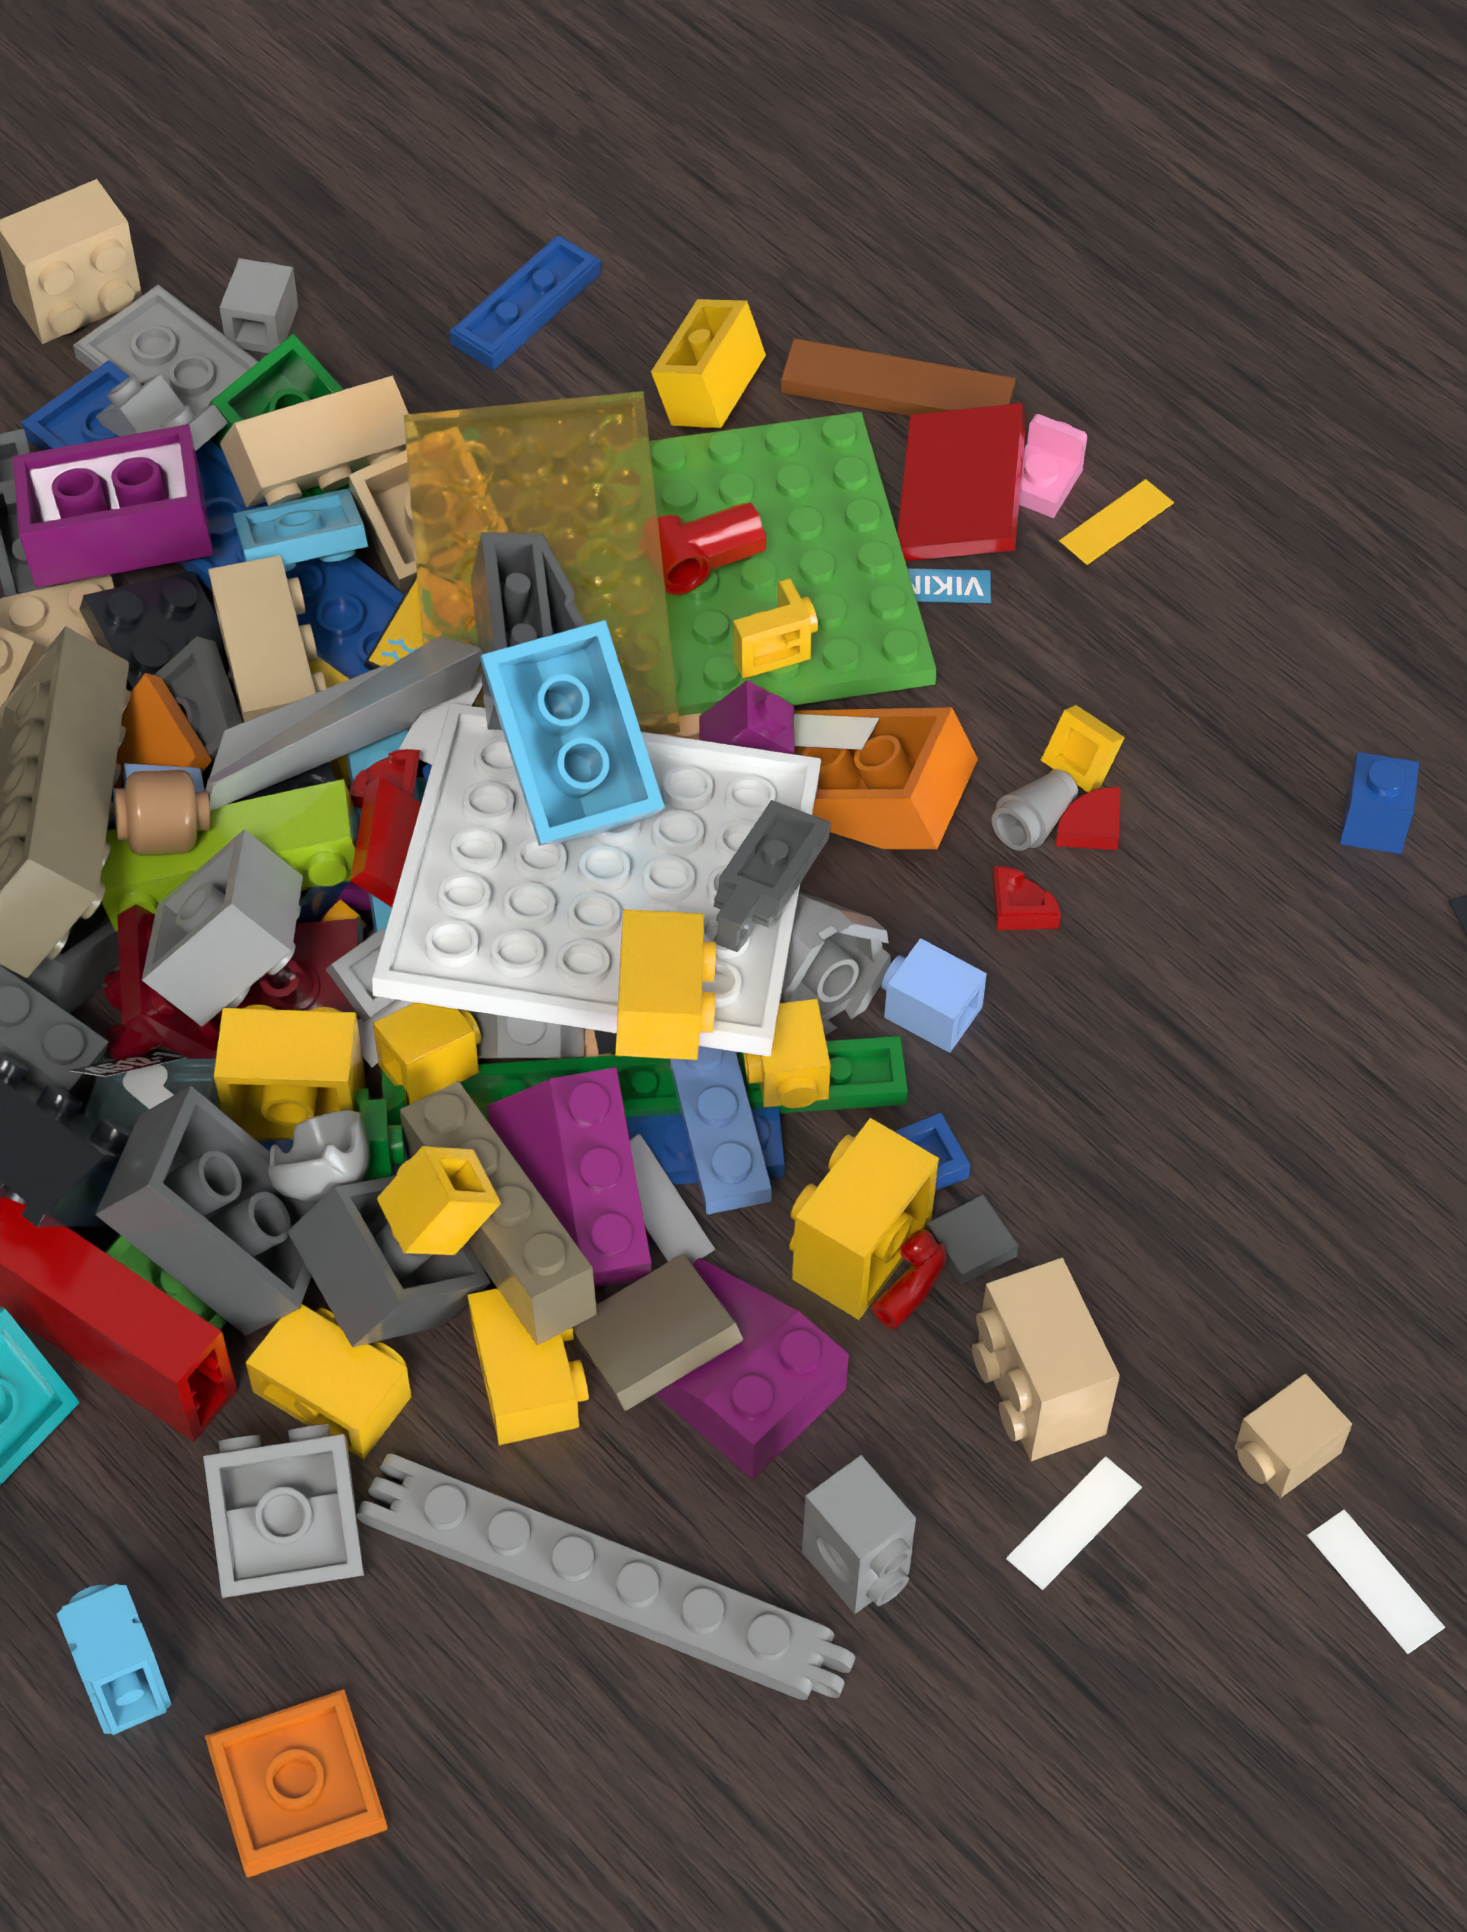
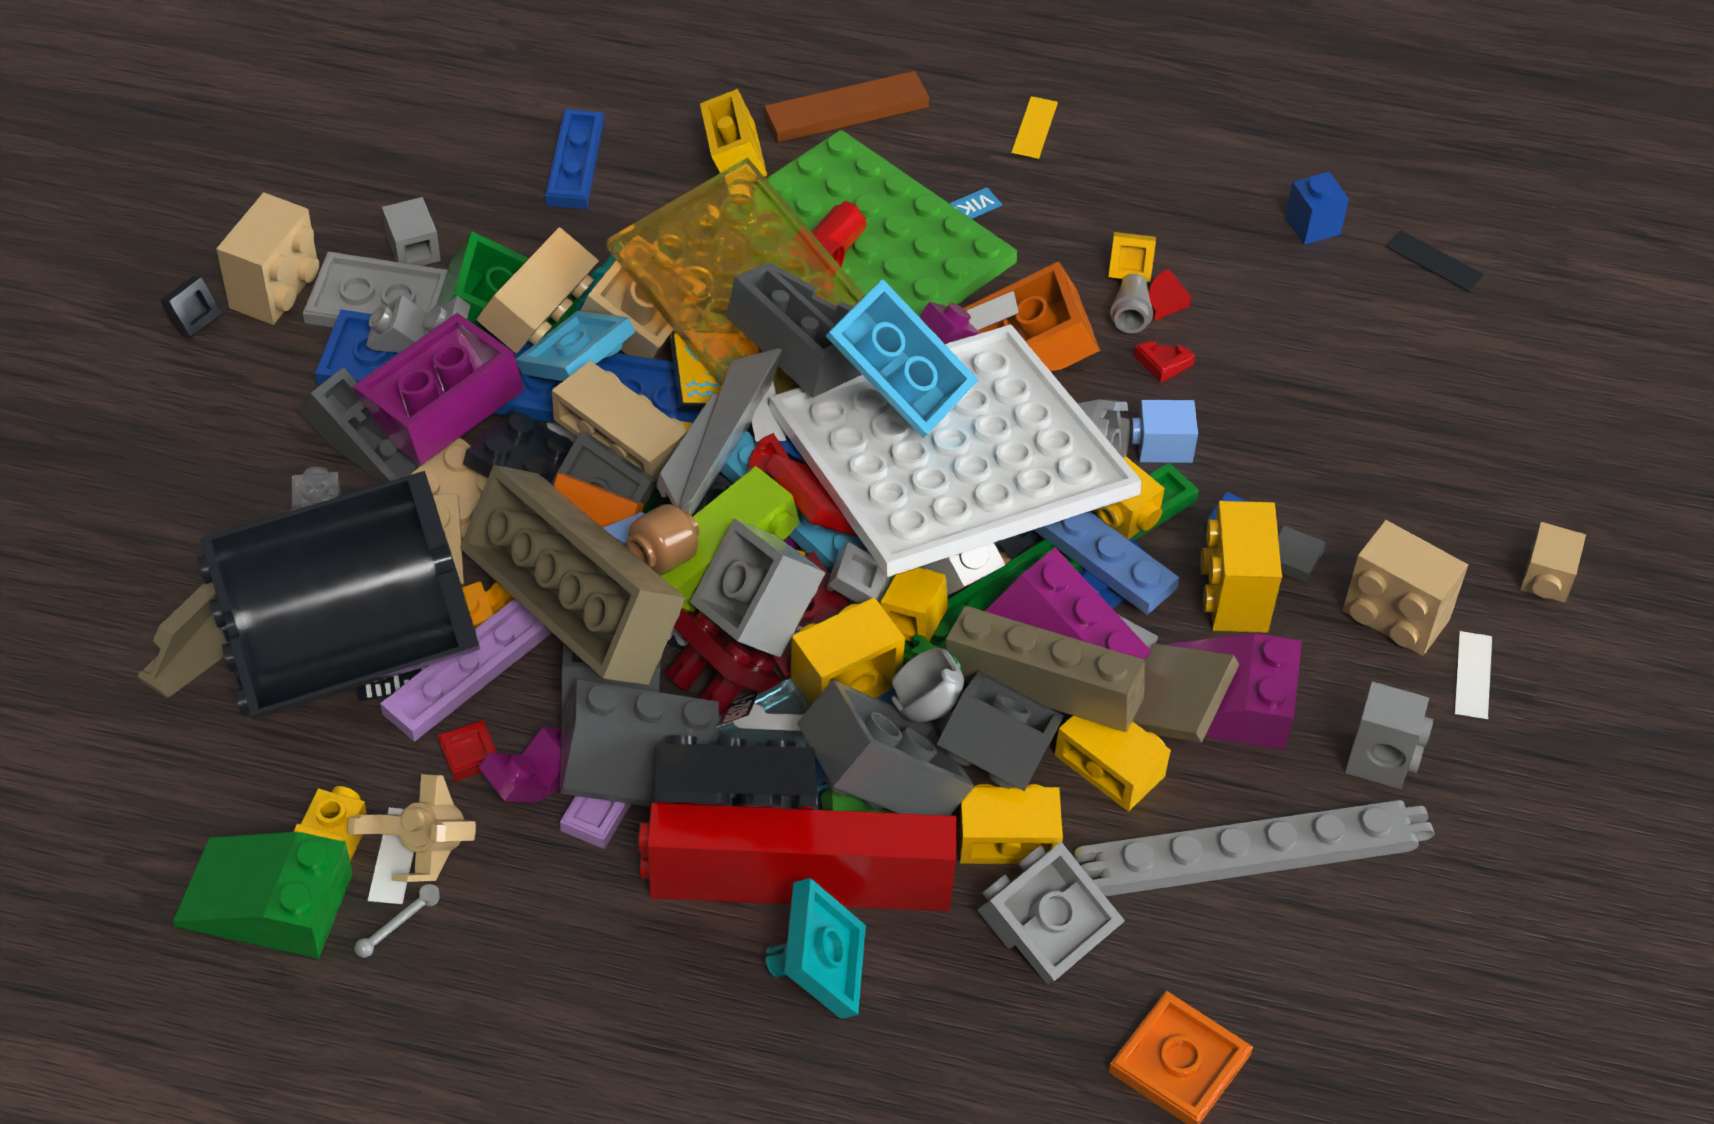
camera: 35 degrees left, 5 degrees down
(113, 1657) = (1033, 1043): medium azure brick -> none
(438, 1200) = (1026, 671): yellow brick -> none
(662, 985) = (1063, 477): yellow brick -> none
(766, 871) = (1054, 392): dark grey hinge -> none
(775, 636) = (921, 267): yellow bracket -> none
(915, 1284) = (1287, 599): red arm -> none
(962, 482) = (936, 140): red tile -> none
(1050, 464) = (974, 111): bright pink bracket -> none
(1376, 1581) = (1648, 617): white sticker -> none

